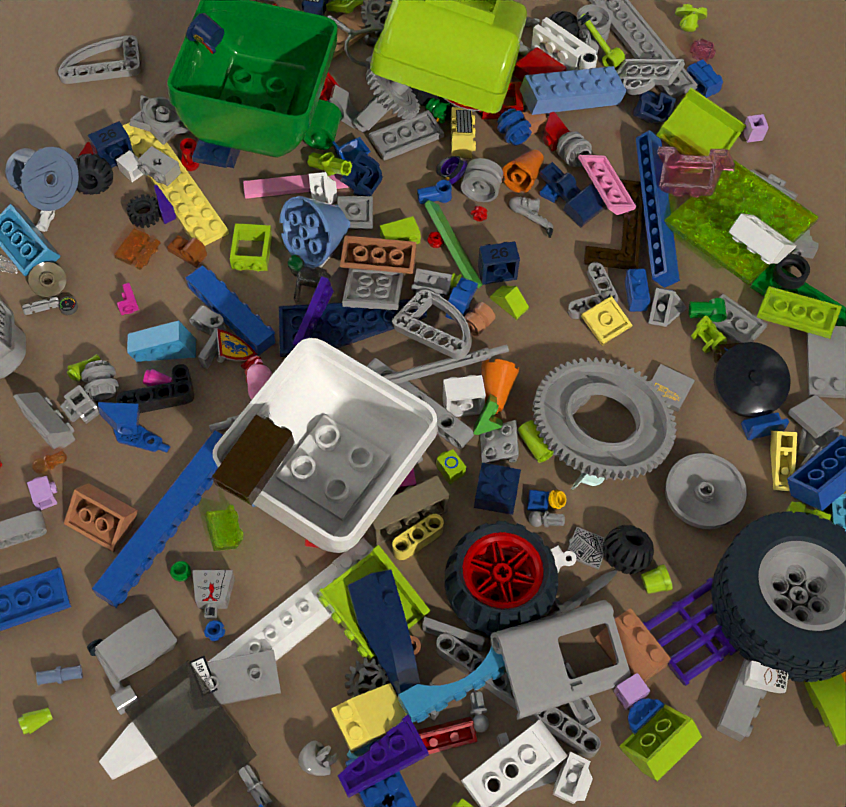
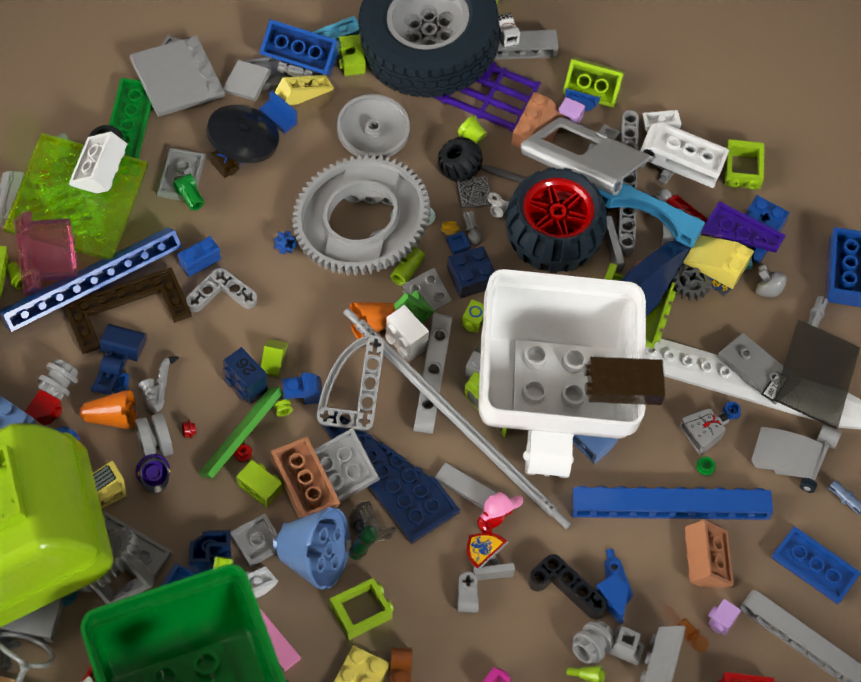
camera: 125 degrees left, 0 degrees up
(154, 378) = (556, 601): dark pink cone -> none
(162, 343) = (522, 616): dark azure wedge -> none
(224, 528) = (649, 452): clear neon green bracket -> none
(233, 311) = (442, 582): blue brick -> none
(315, 310) = (408, 493): dark purple wing -> none
(432, 281) = (300, 423): light grey bracket -> none
(440, 192) = (190, 480): blue piece -> none
(479, 318) = (315, 365): nougat wheel -> none
(606, 320) = (247, 267): light yellow tile -> none
(607, 183) = (88, 329): bright pink slope -> none
(616, 355) = (285, 242): none -> blue gear
(665, 307) = (204, 228): light grey slope -> none
(673, 384) = (282, 194): light grey tile -> none
(708, 332) = (212, 183): lime piece -> none
(799, 312) = (149, 122): lime plate -> none

